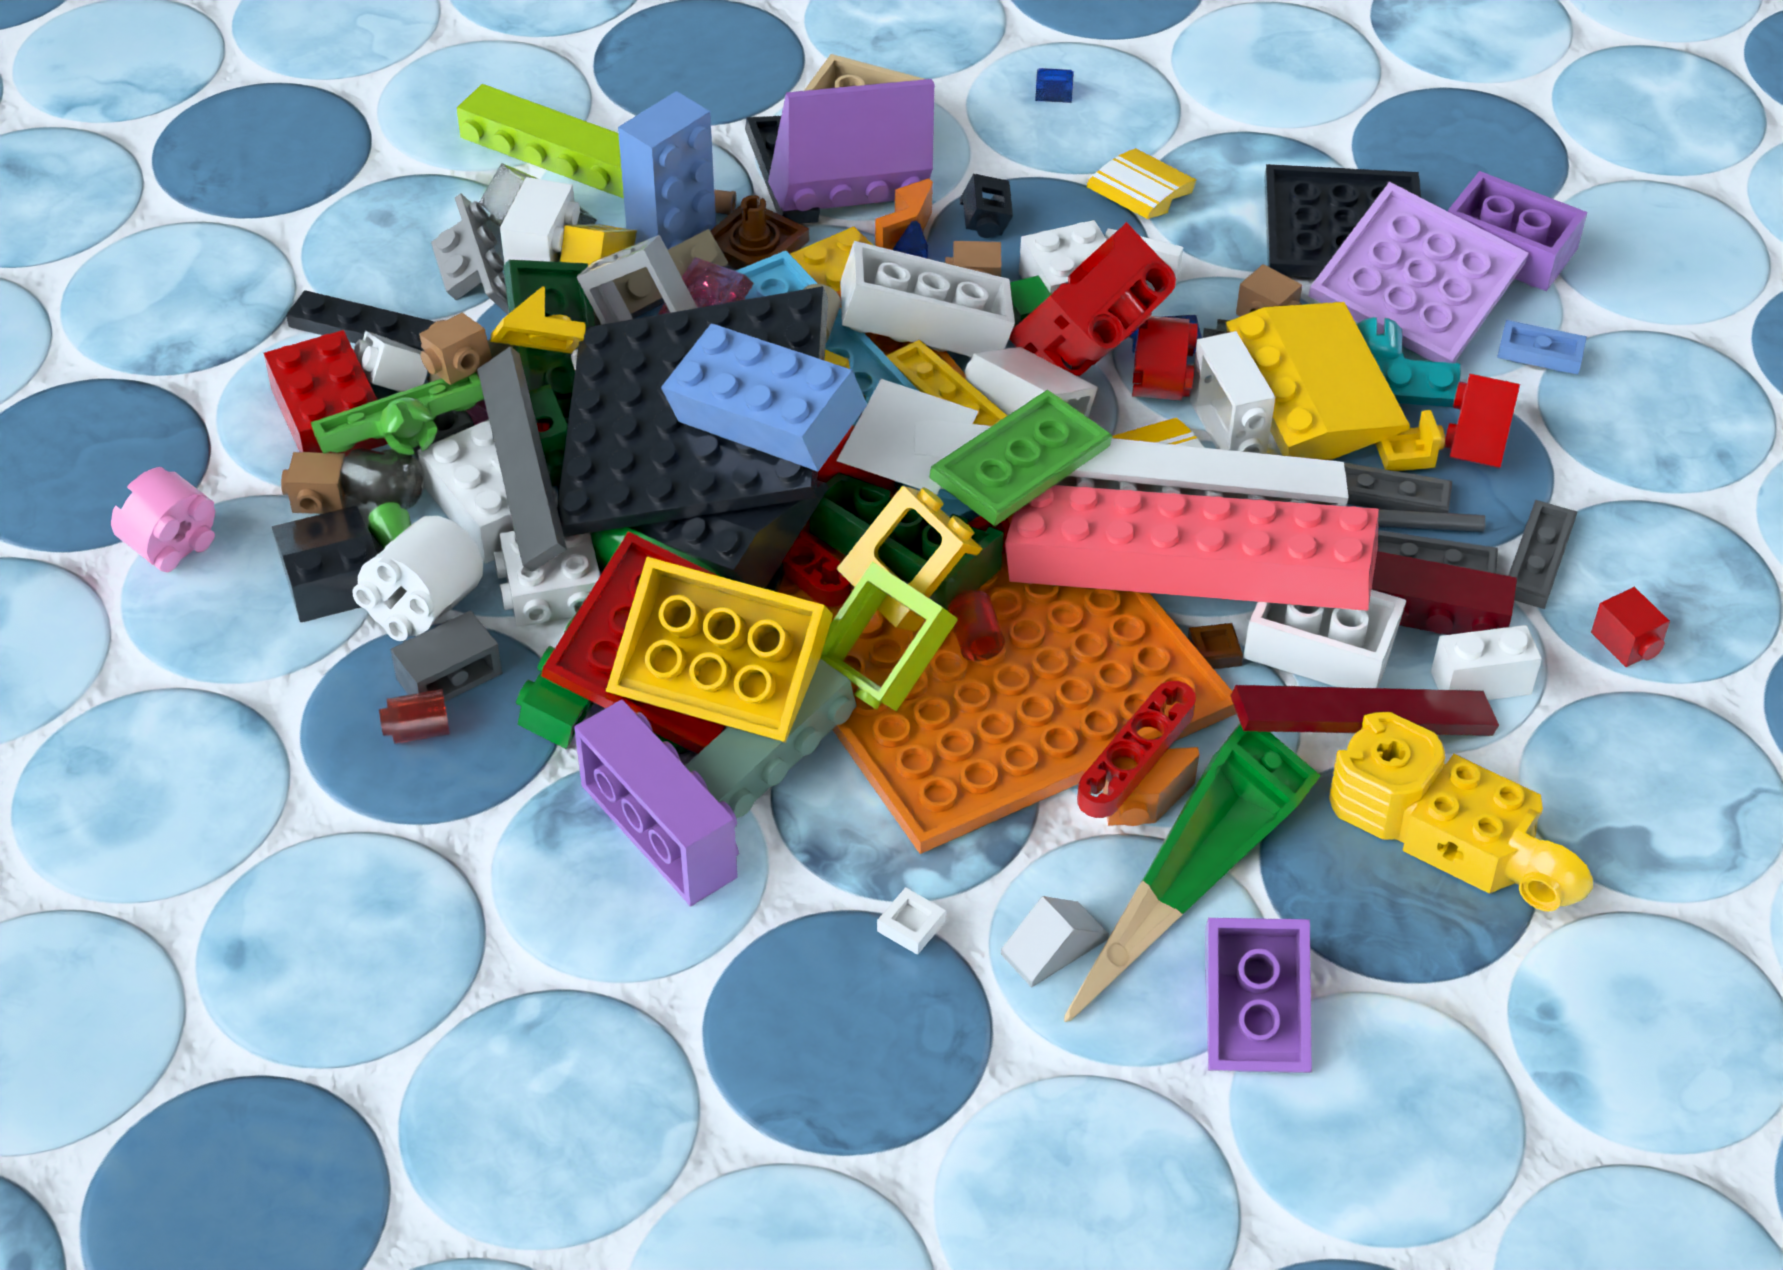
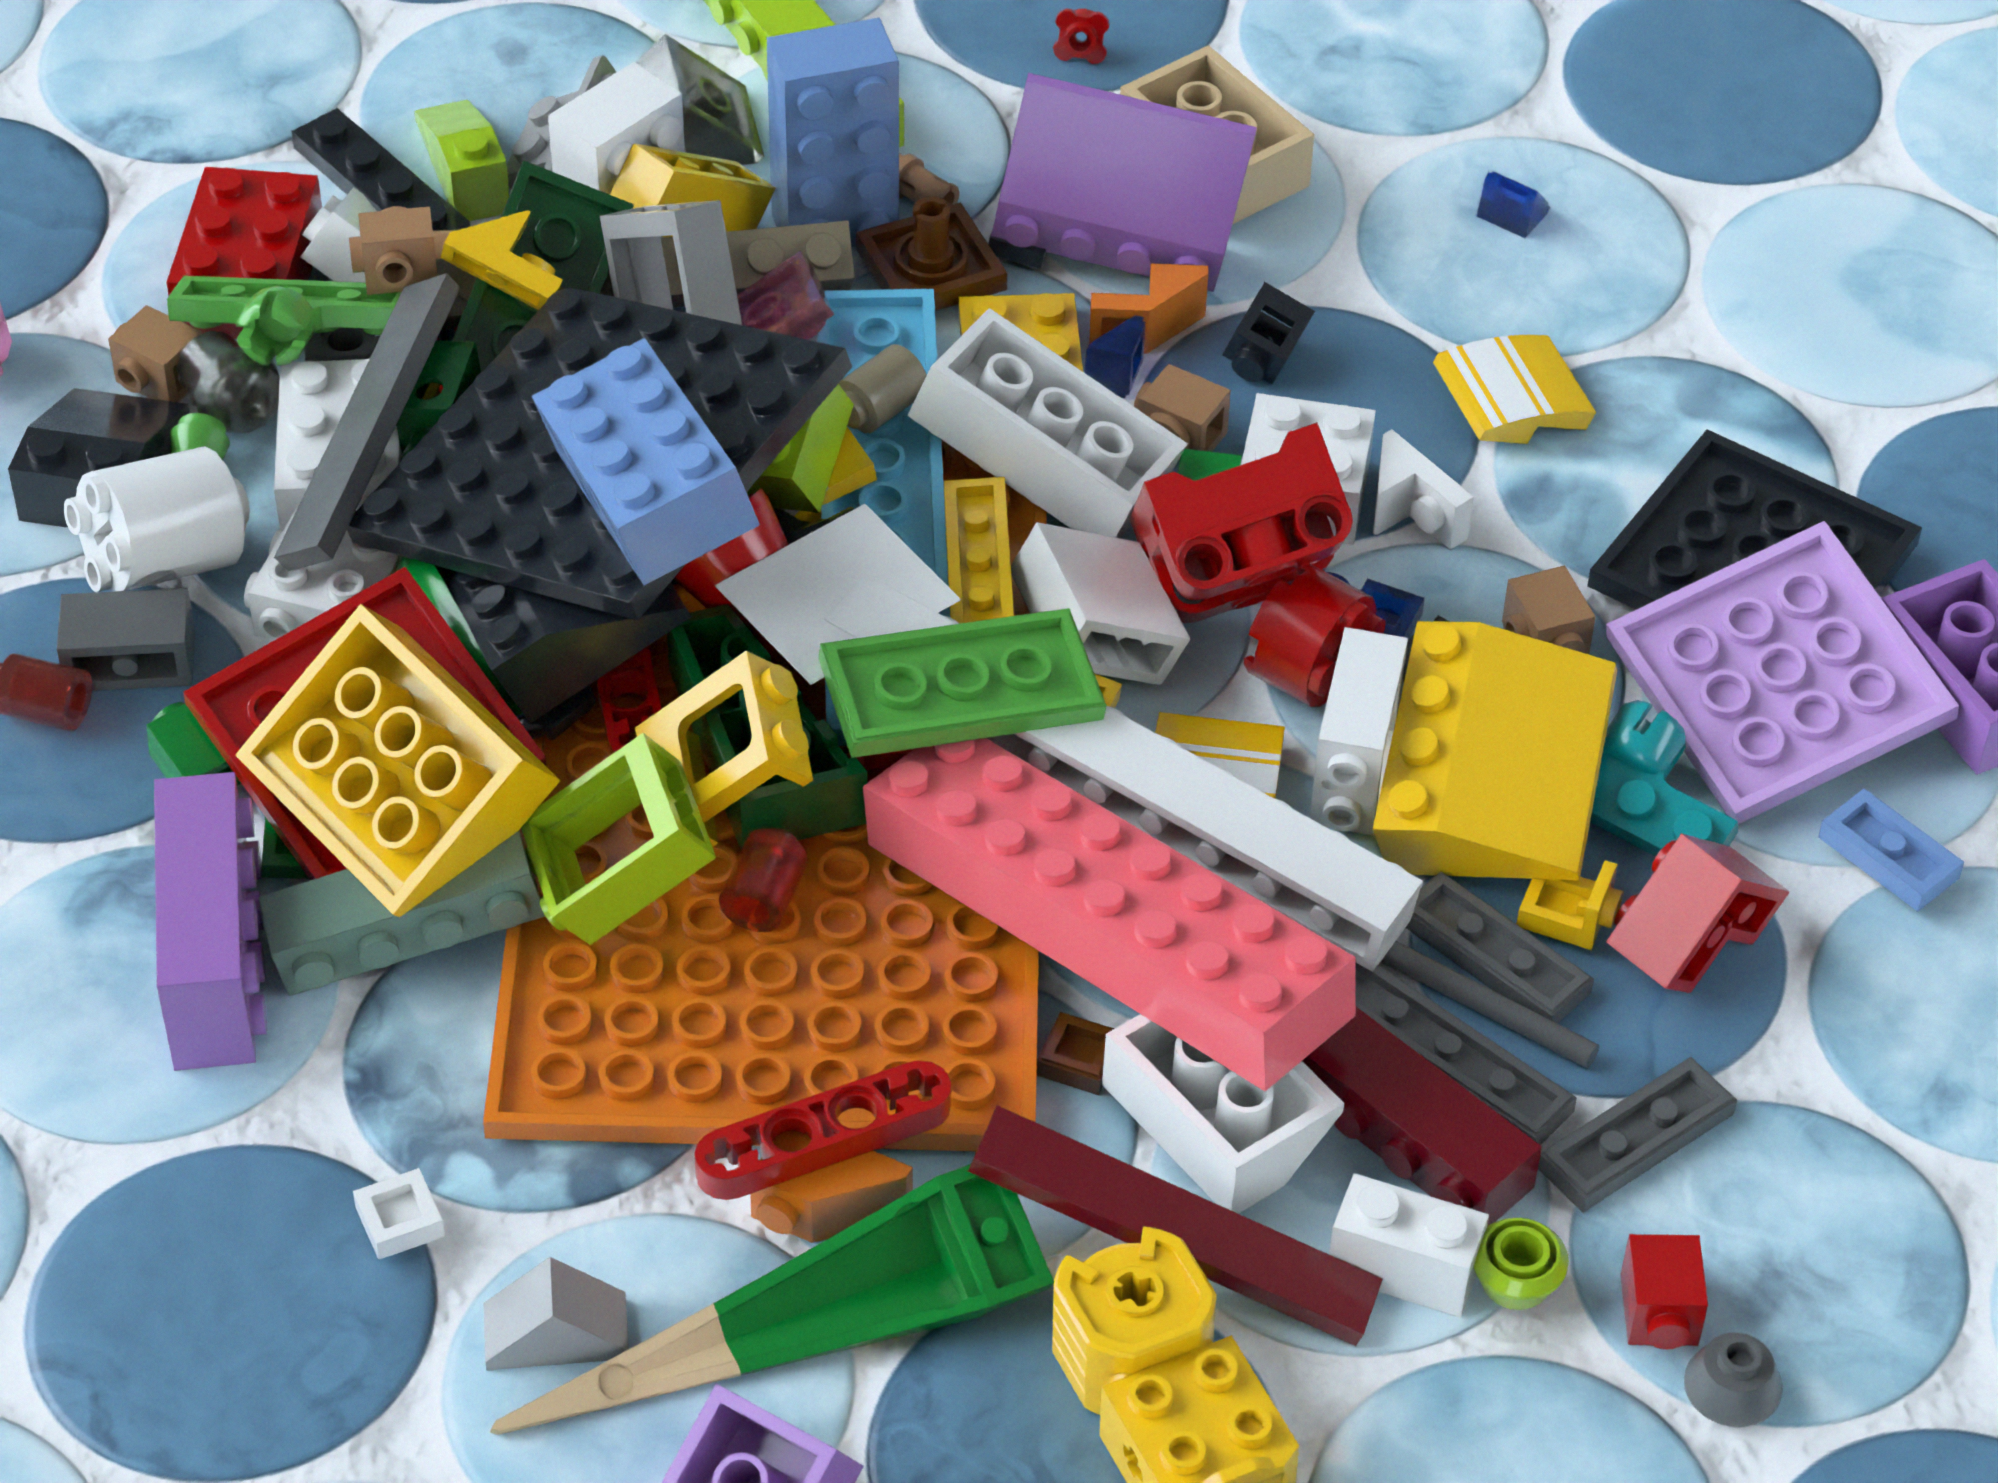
camera: 30 degrees right, 0 degrees up
(414, 286) = (465, 158): none -> lime slope
(727, 73) = (1088, 22): none -> red plate
(1557, 644) = (1520, 1262): none -> lime cone
(1700, 657) = (1734, 1381): none -> dark grey cone

